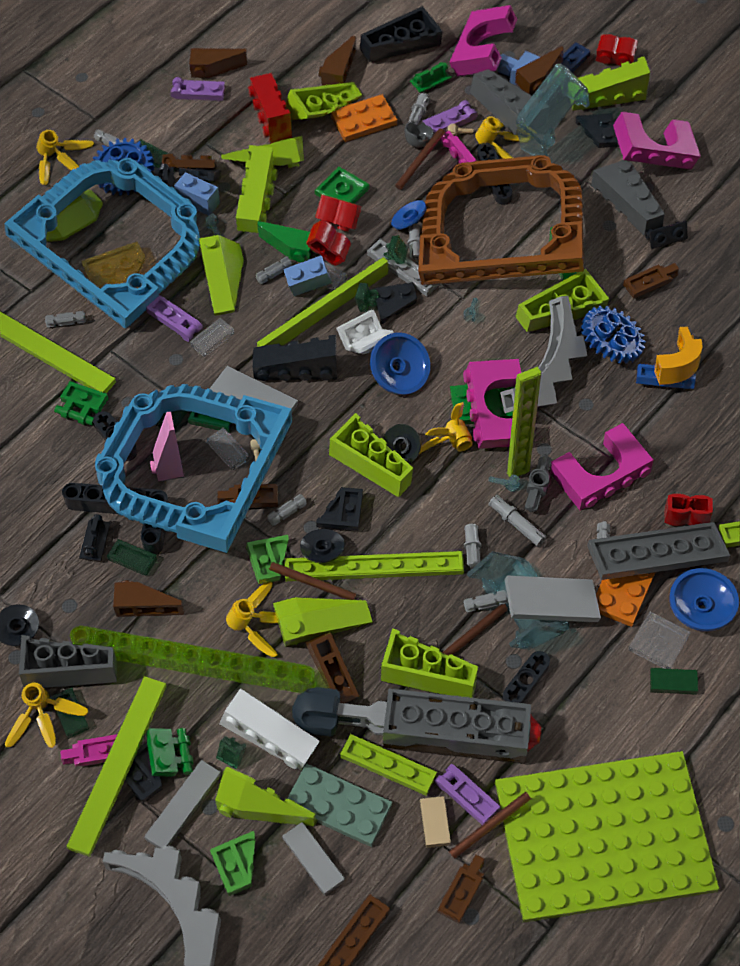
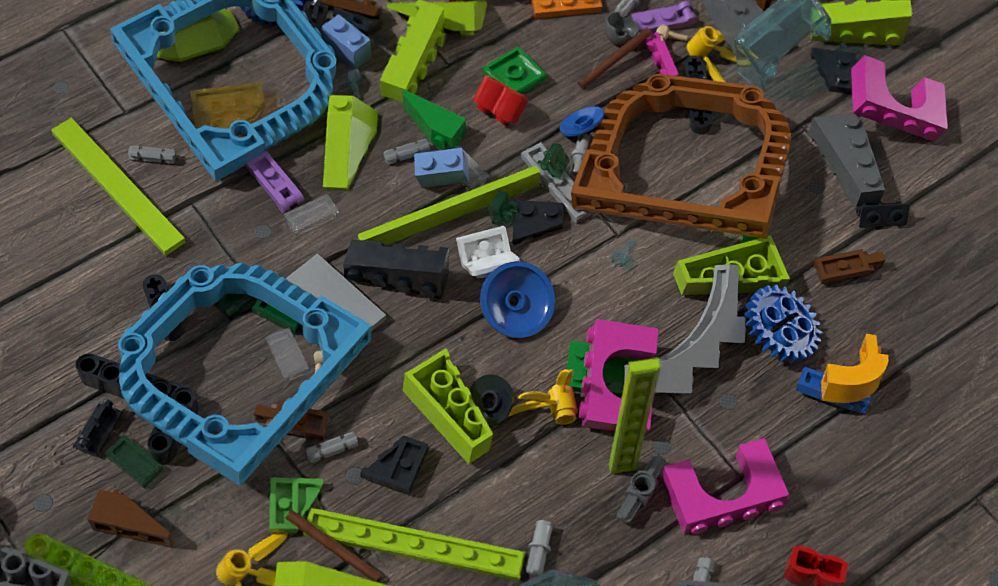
camera: 10 degrees right, 0 degrees up
(82, 397) = (141, 253): green plate -> none
(166, 452) = (212, 342): bright pink wedge -> none
(322, 545) = (358, 495): black dish -> none
(329, 243) = (478, 133): red brick -> none
(510, 484) = (609, 480): clear light blue hand -> none
(519, 522) = (596, 520): light grey pin -> none

